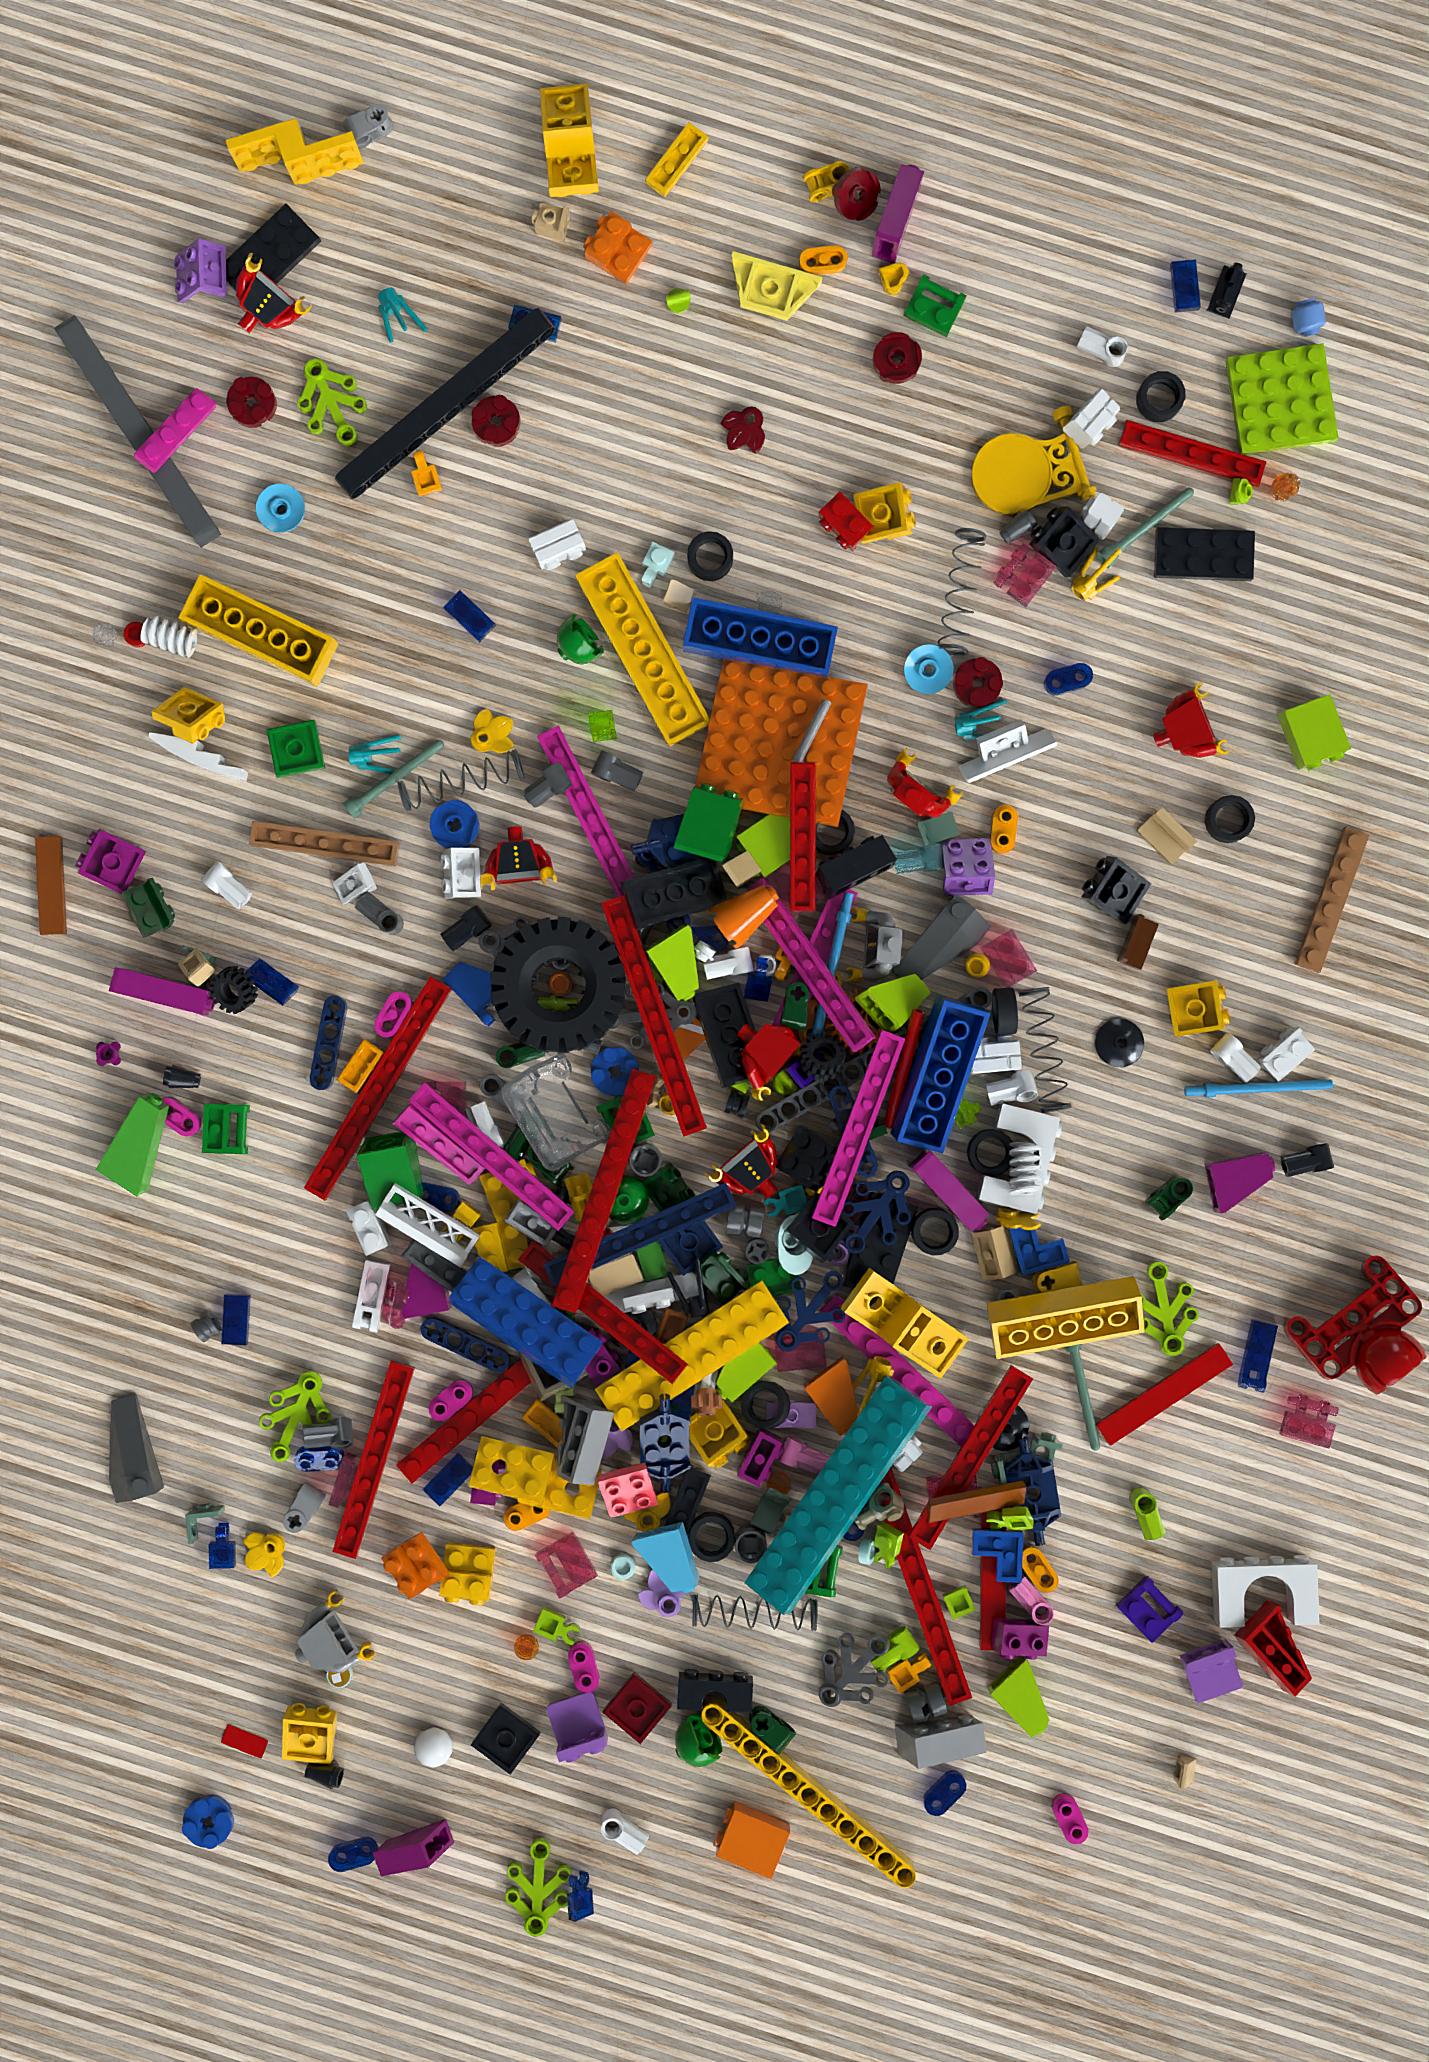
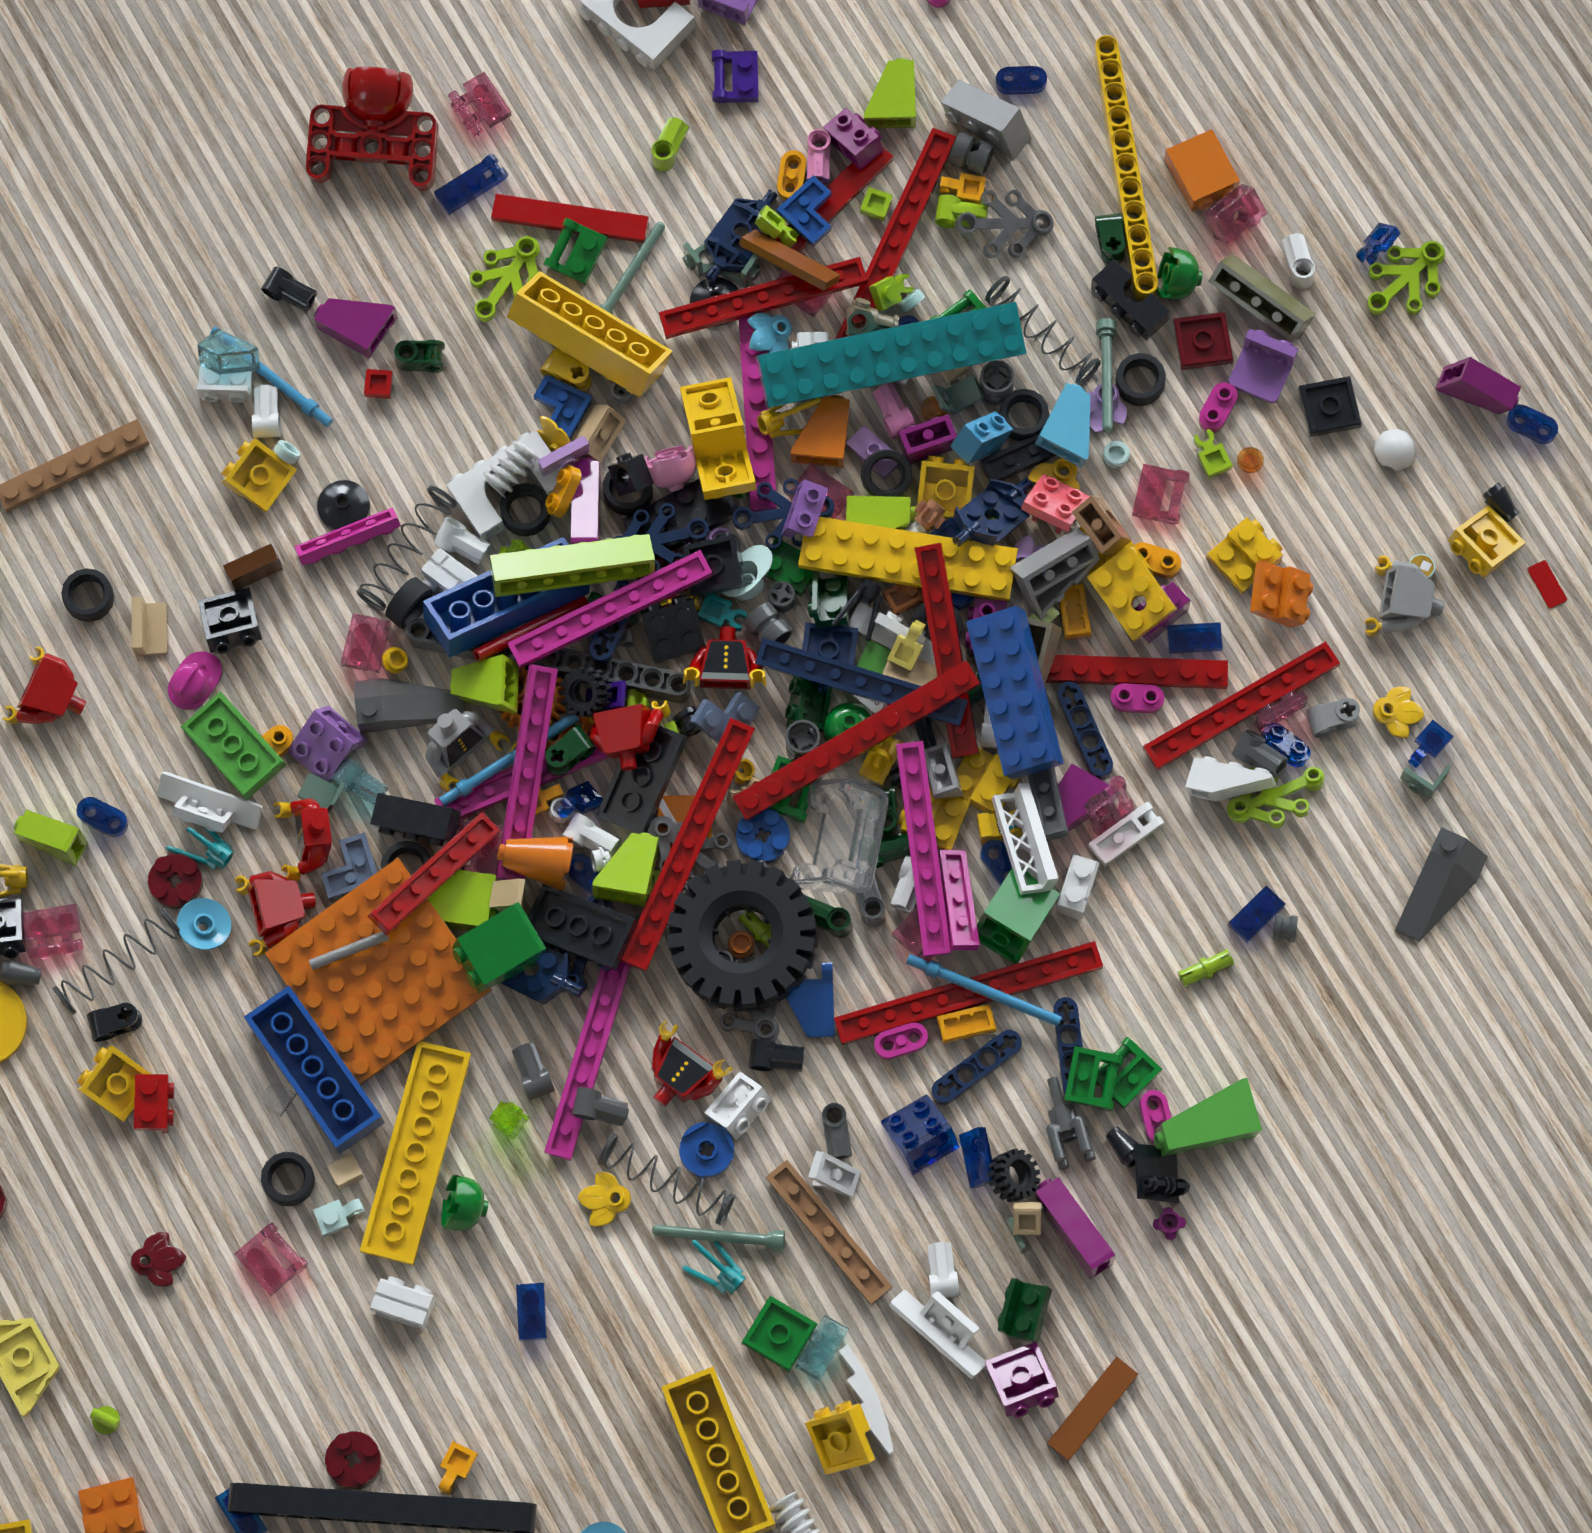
camera: 135 degrees left, 15 degrees down
(139, 1075) = (1157, 1175): none -> black hinge
(192, 847) = (943, 1327): none -> white bracket
(230, 1055) = (1066, 1128): none -> dark grey plant
(236, 1250) = (1205, 968): none -> lime pin
(246, 1099) = (1084, 1075): none -> green plate
(260, 766) = (822, 1347): none -> clear light blue slope
(274, 1114) = (1066, 1050): none -> dark blue beam
(325, 964) = (921, 1134): none -> clear blue bracket
(339, 1389) = (1222, 781): none -> white slope
(412, 1081) = (934, 969): none -> dark azure bar
(575, 1500) = (1101, 525): none -> medium nougat brick
(622, 1778) = (1261, 297): none -> olive brick
(630, 1287) = (907, 649): none -> light yellow plate
(651, 1657) = (1141, 360): none -> black tyre
(671, 487) = (263, 1264): none -> clear pink plate
(698, 1827) = (1221, 214): none -> clear pink brick
(711, 1653) = (1106, 330): none -> sand green piece
(716, 1118) = (714, 721): none -> sand blue plate
(722, 1491) = (981, 437): none -> dark azure brick
(793, 1324) = (805, 509): none -> medium lavender bracket
(860, 797) = (358, 867): none -> sand blue plate
(892, 723) = (275, 907): none -> red torso
(913, 1134) = (572, 565): none -> brick
(918, 1273) = (672, 467): none -> bright pink cylinder
(925, 550) = (110, 1021): none -> black piece
(939, 1240) = (630, 473): none -> black brick
(942, 1431) = (766, 333): none -> medium azure plate
(973, 1185) = (564, 490): none -> light orange plate
(995, 1210) = (563, 456): none -> lavender plate
(1027, 805) = (233, 745): none -> bright green tile
(1088, 632) = (51, 836): none -> lime slope
(1093, 1021) = (349, 535): none -> dark pink plate
(1100, 829) = (194, 680): none -> dark pink piece
(1128, 1376) = (583, 255): none -> green plate
(1179, 1149) = (378, 383): none -> red plate
(1193, 1042) = (287, 452): none -> light aqua tile
(1304, 1072) = (227, 354): none -> clear light blue slope

